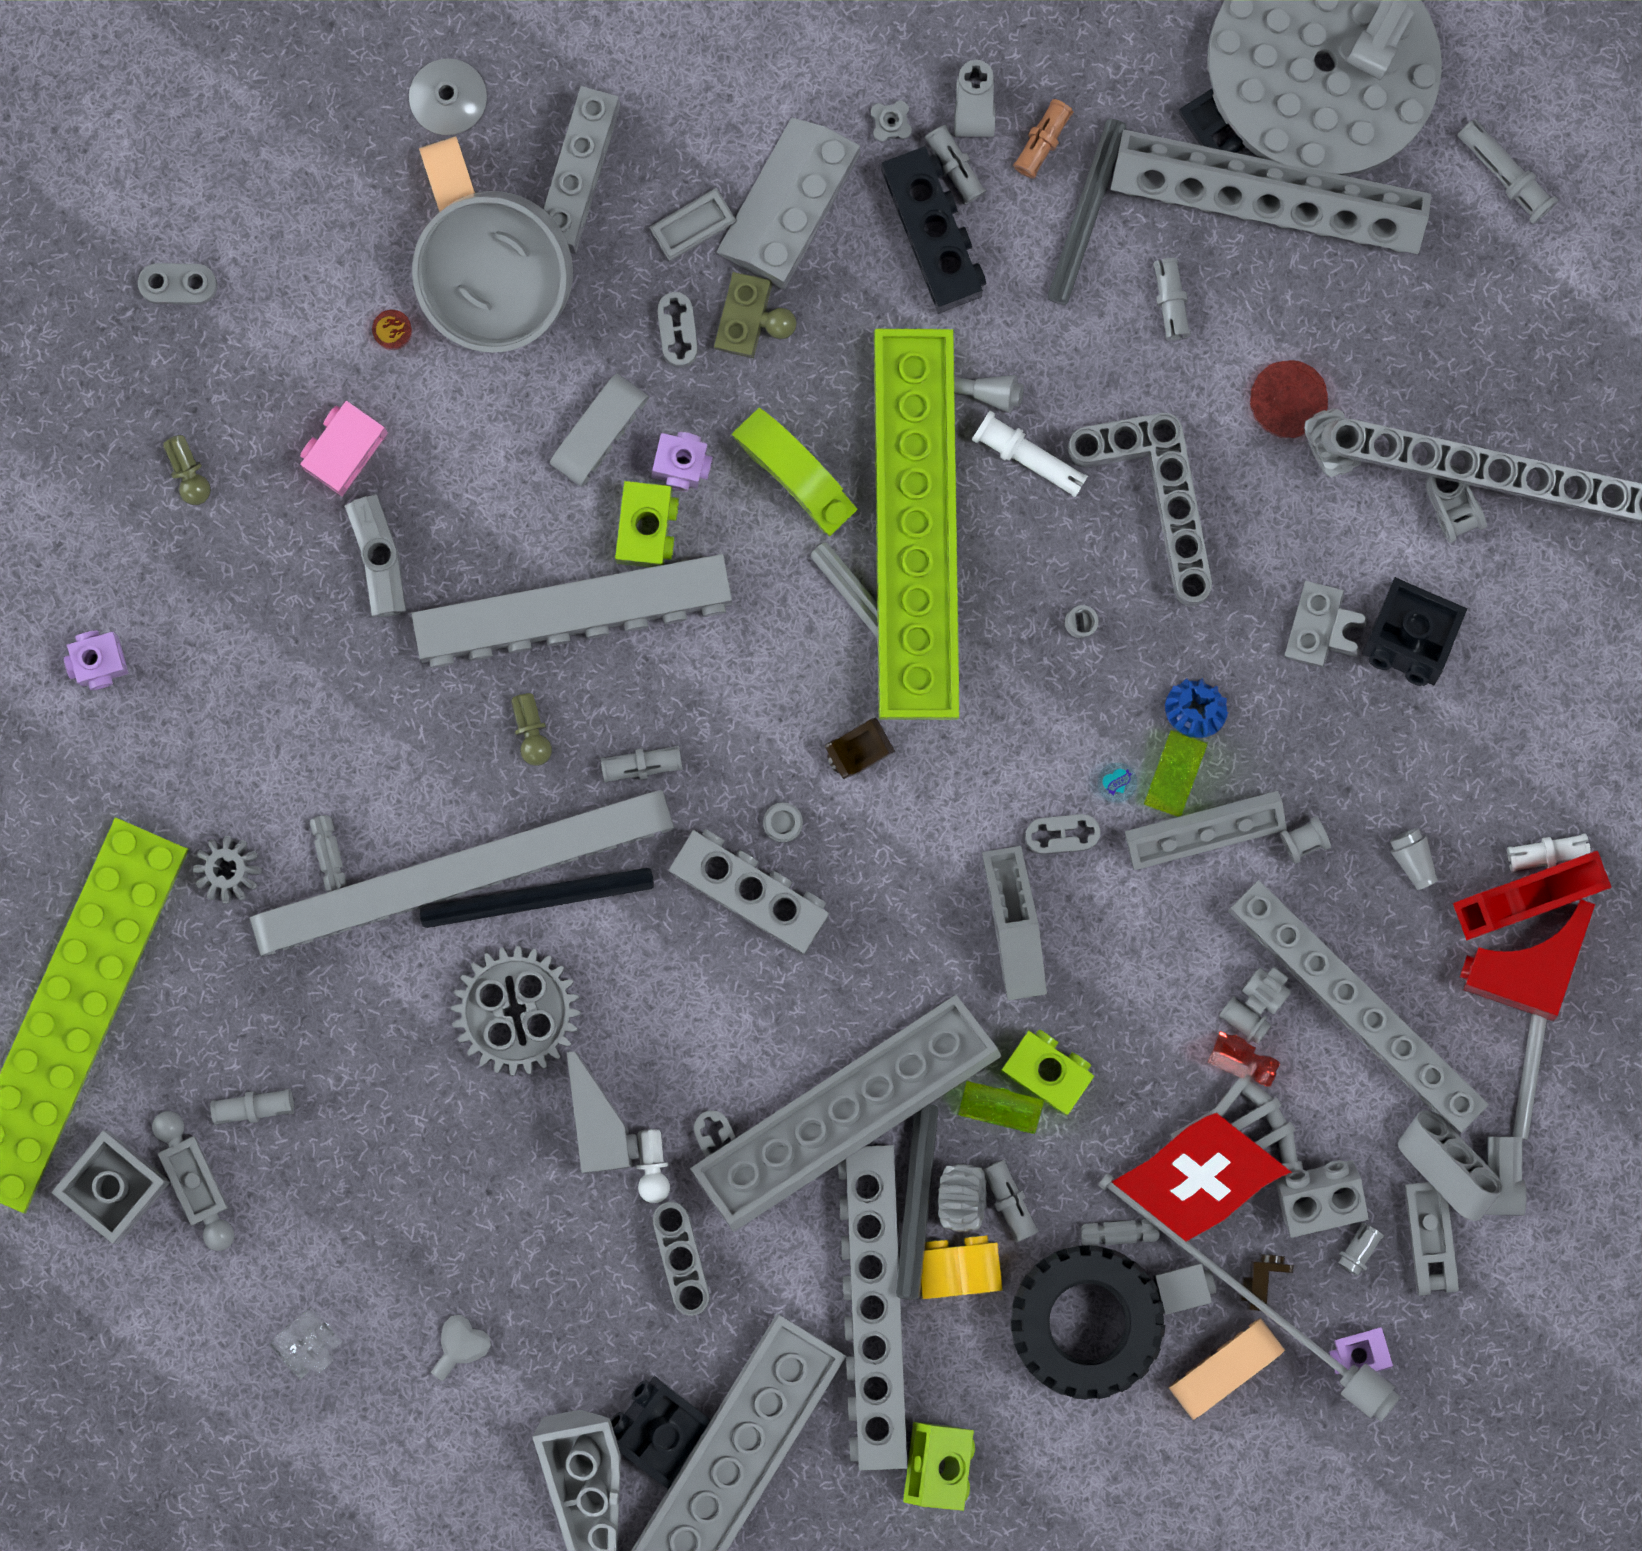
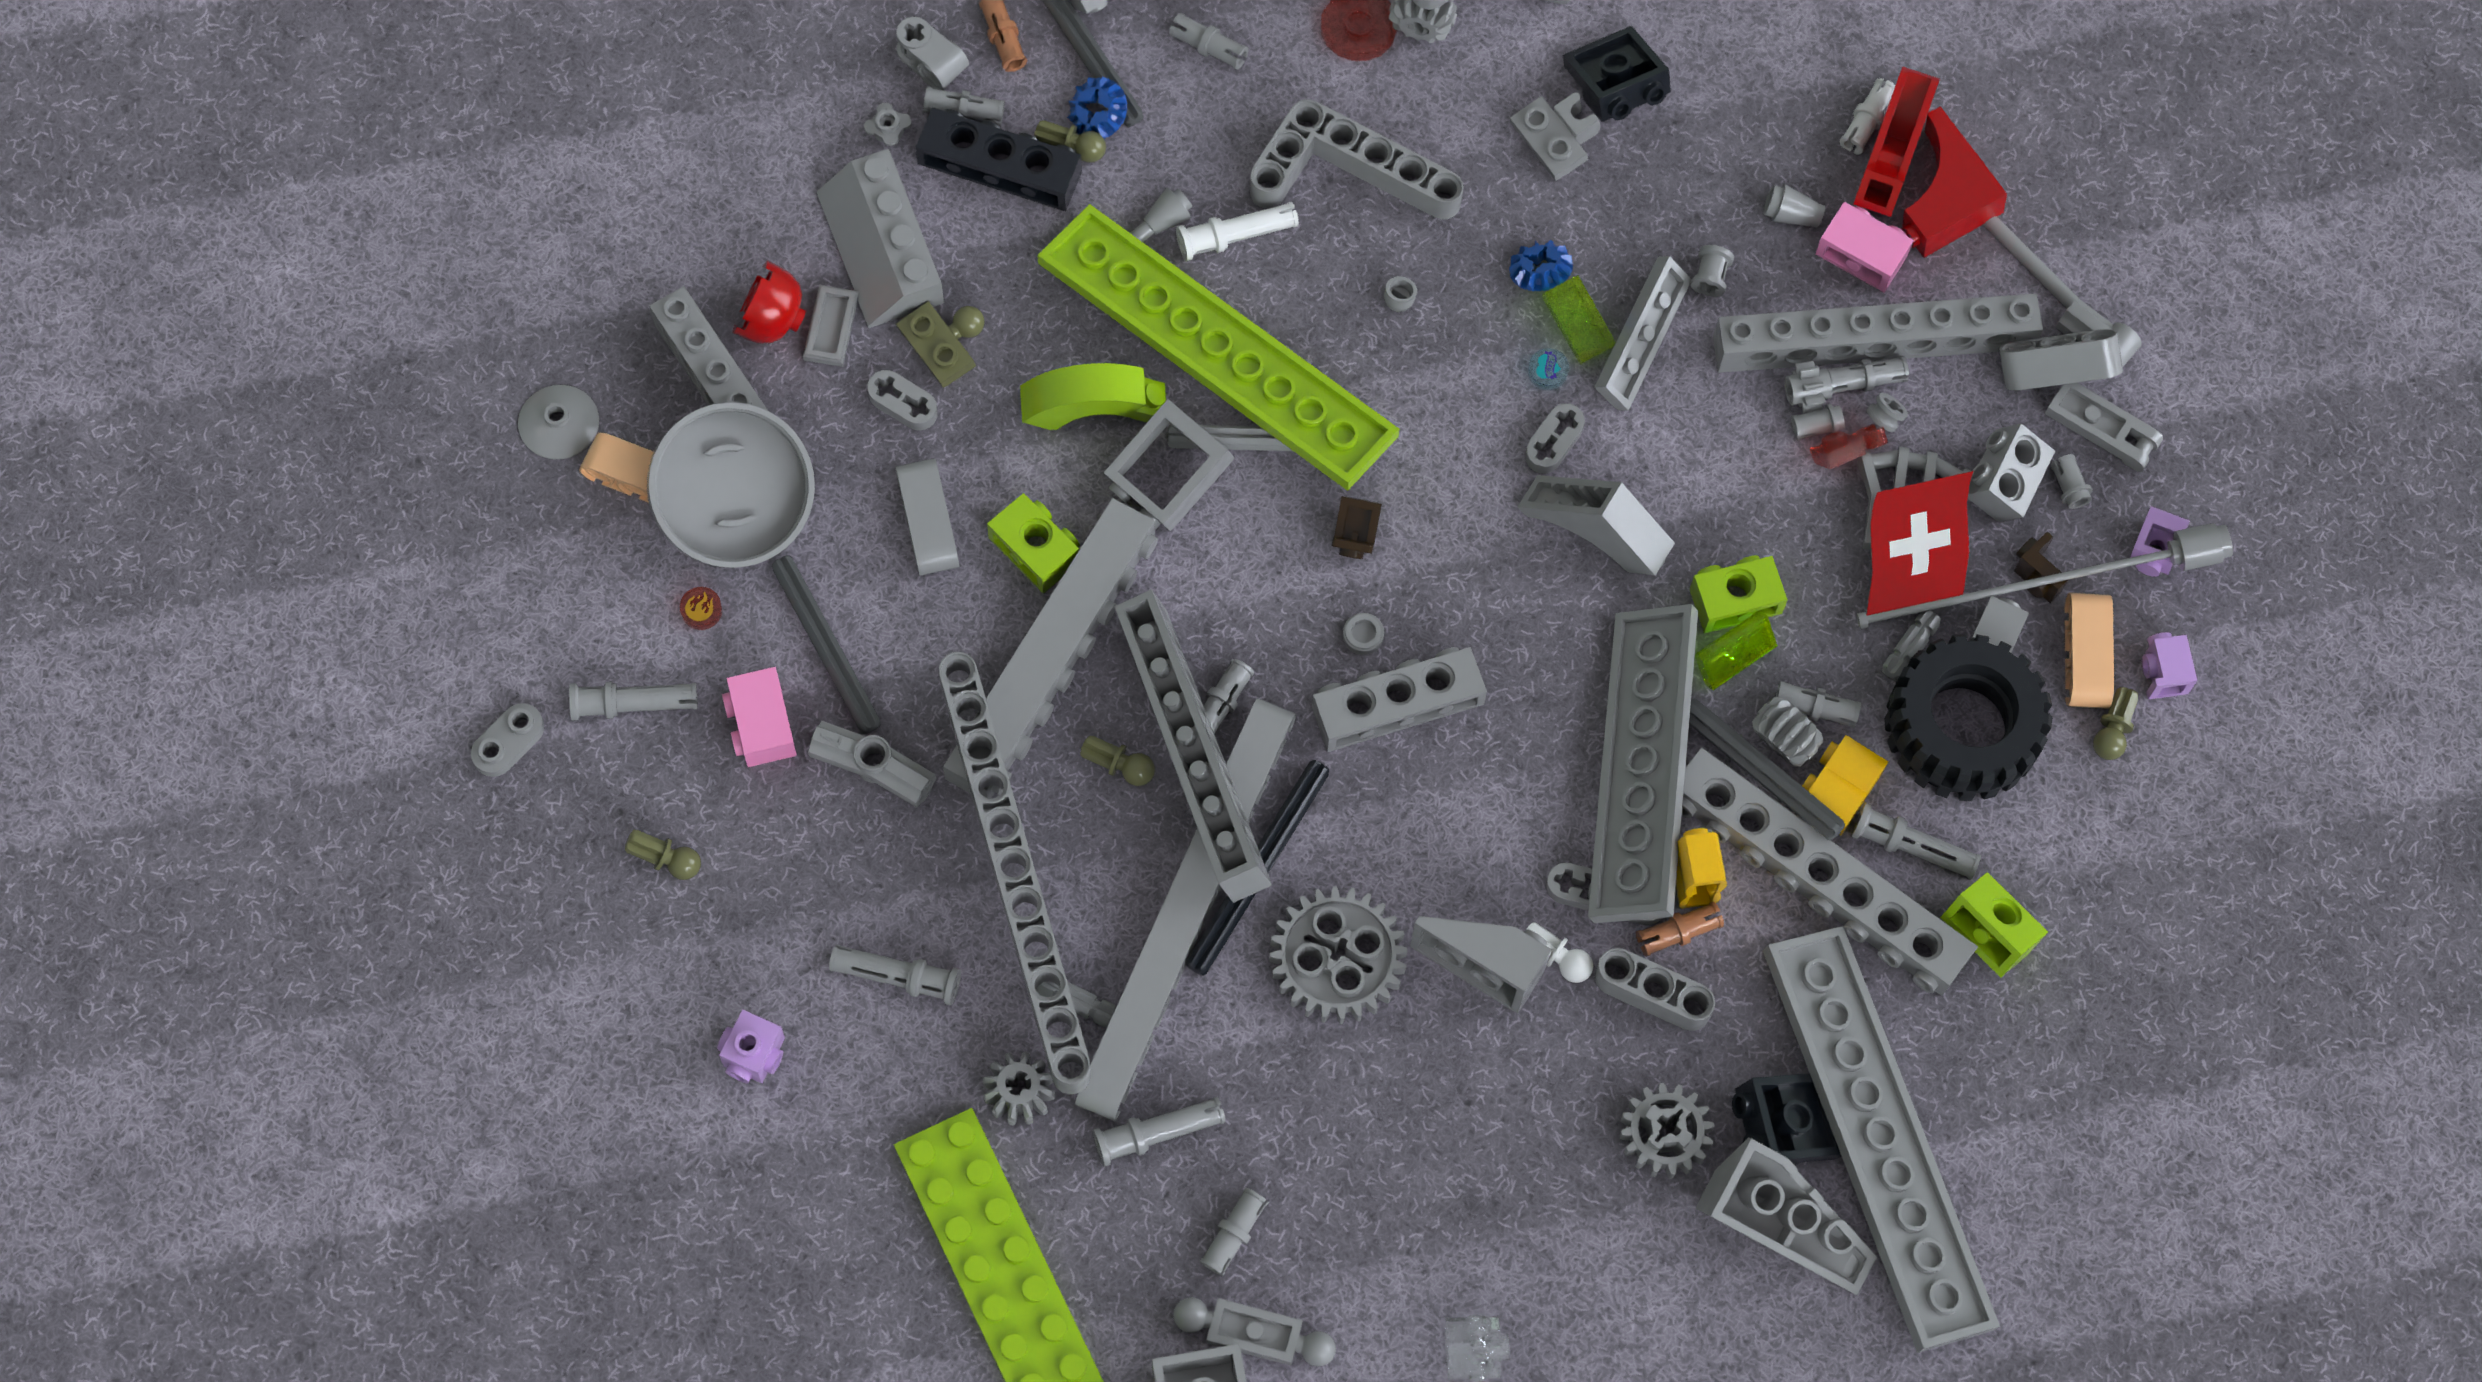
camera: 55 degrees left, 15 degrees down
(246, 726) = (914, 976): none -> light grey pin
(264, 981) = (1139, 1135): none -> light grey pin
(268, 332) = (611, 699): none -> light grey pin
(370, 752) = (1017, 889): none -> light grey beam
(441, 443) = (826, 644): none -> dark grey axle
(460, 1345) = (1578, 1227): light grey rock -> none
(573, 778) = (1193, 747): none -> light grey brick
(581, 1370) = (1679, 1141): none -> light grey gear
(662, 170) = (771, 307): none -> red cylinder
(679, 447) = (1008, 473): lavender brick -> none
(747, 1240) = (1680, 929): none -> nougat pin
(795, 1218) = (1699, 869): none -> yellow brick
(824, 572) = (1218, 460): none -> light grey window
(953, 1339) = (1963, 862): none -> light grey pin
(1003, 285) = (1088, 144): none -> olive axle
(1052, 269) = (1109, 95): none -> blue gear
(1165, 1440) = (2110, 741): none -> olive axle
(1264, 1437) = (2169, 666): none -> lavender brick
(1297, 1066) = (1887, 412): none -> light grey bush
(1317, 1025) = (1869, 374): none -> light grey pin
(1427, 939) = (1864, 246): none -> bright pink brick

